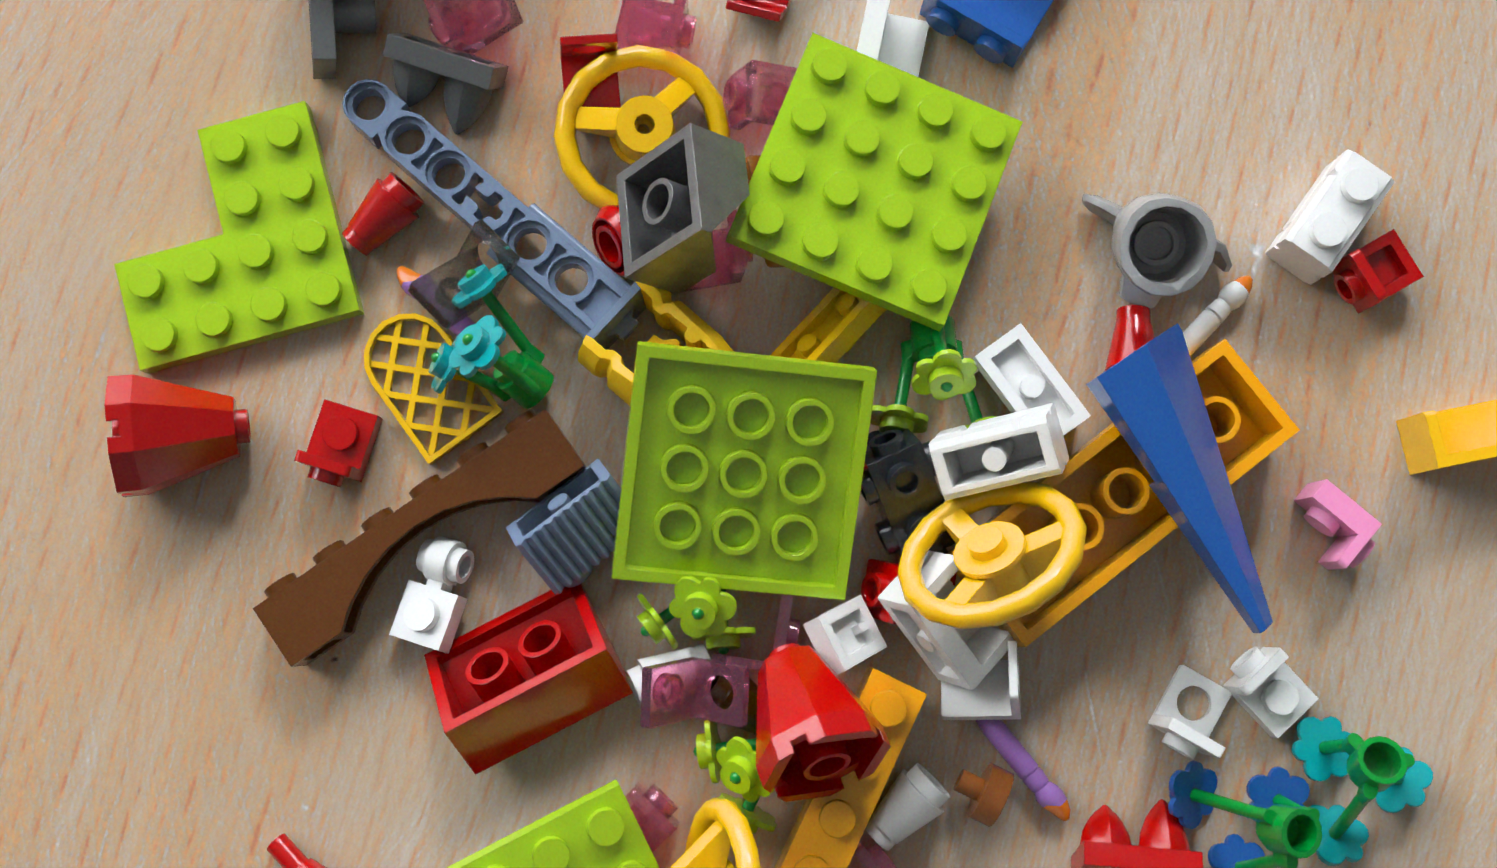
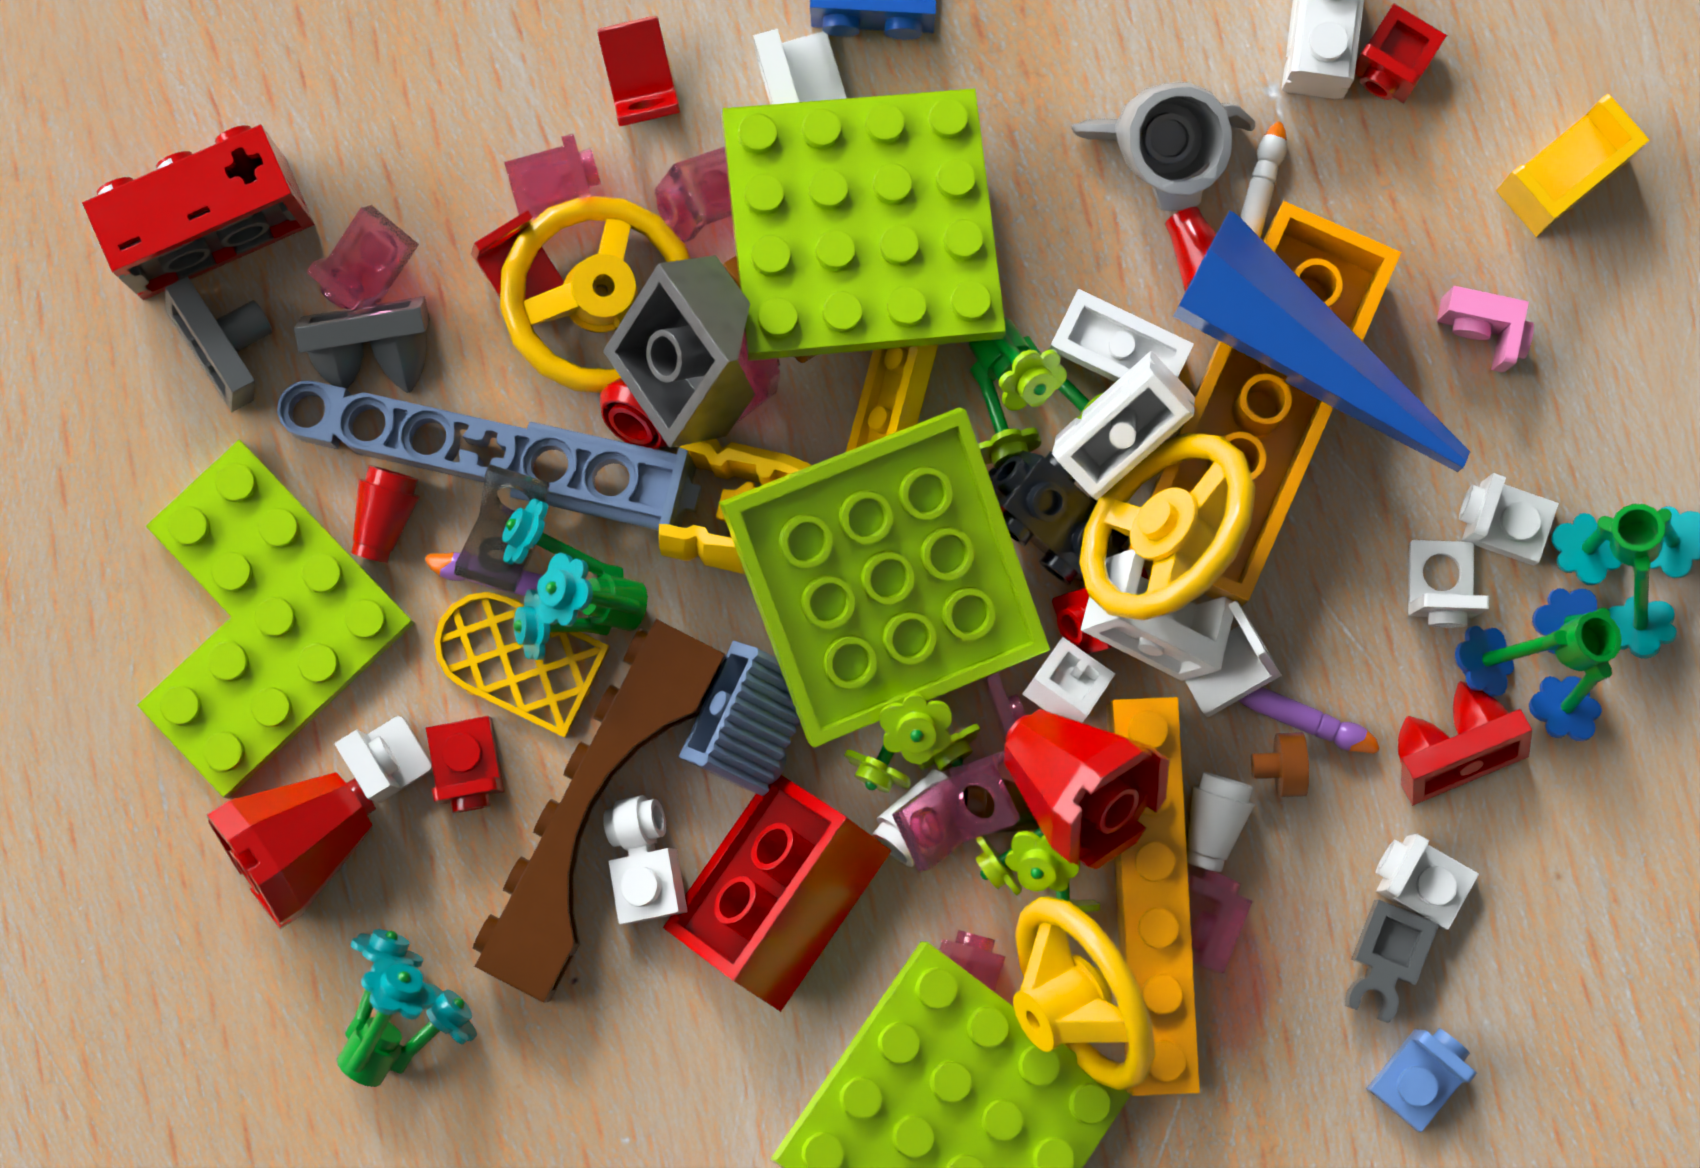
camera: 25 degrees left, 0 degrees up
(174, 600) = (392, 988): none -> plant
(275, 407) = (384, 758): none -> white bracket

